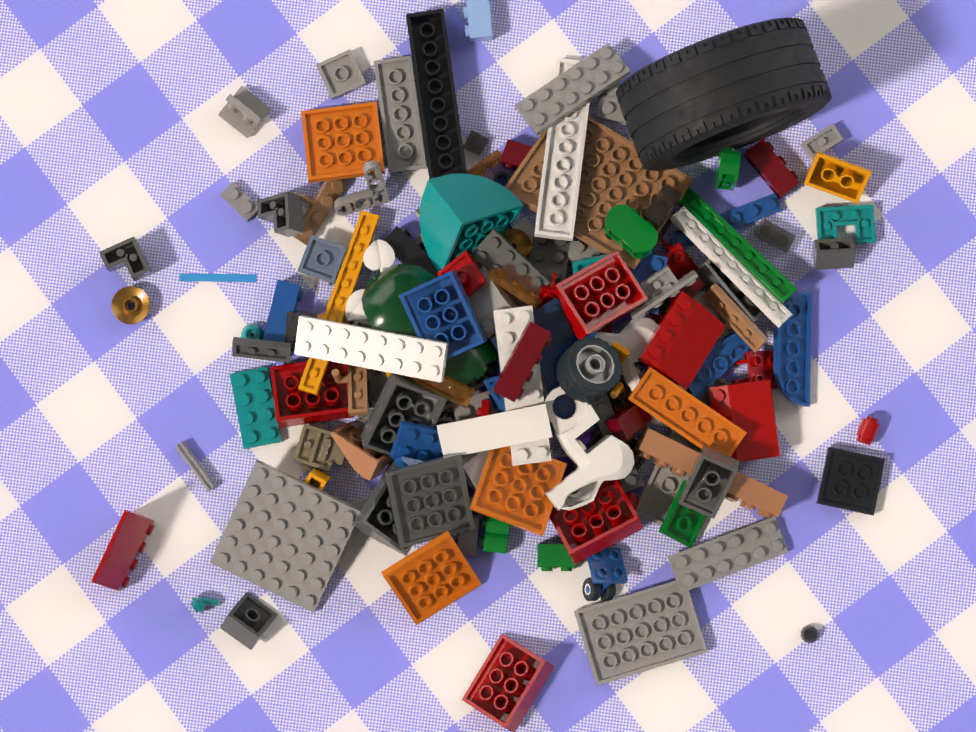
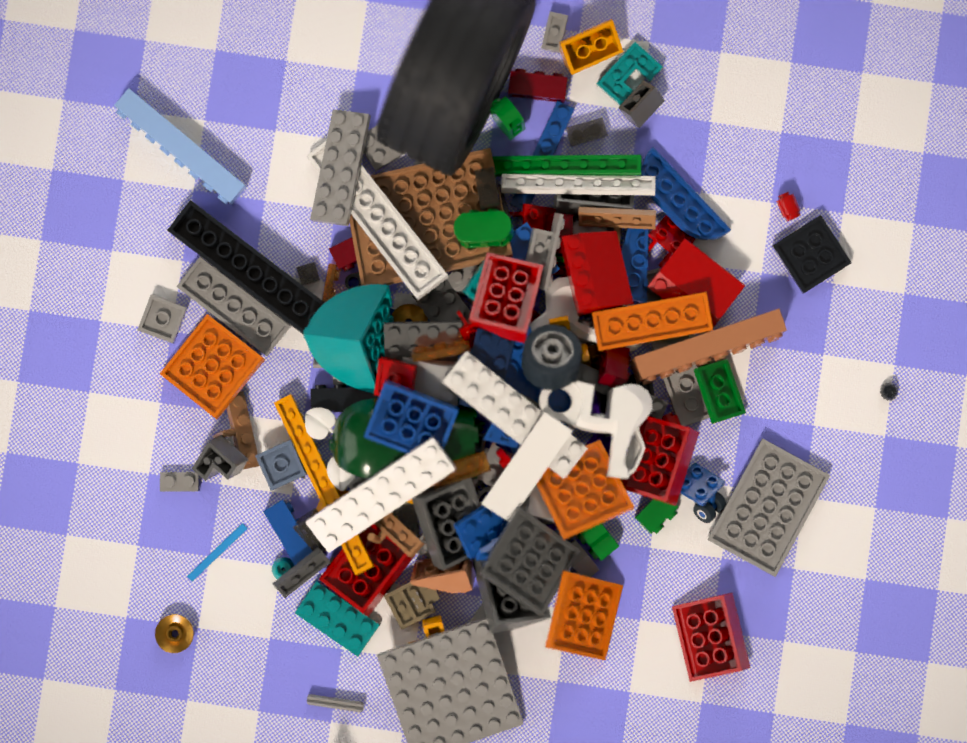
camera: 40 degrees left, 0 degrees up
(129, 254) = (136, 598): dark grey brick -> none
(244, 111) = (118, 414): light grey bracket -> none
(370, 194) = (258, 410): light grey beam -> none
(521, 361) = (498, 398): dark red brick -> none
(709, 482) = (714, 353): dark grey slope -> none
(727, 554) = (776, 392): light grey plate -> none

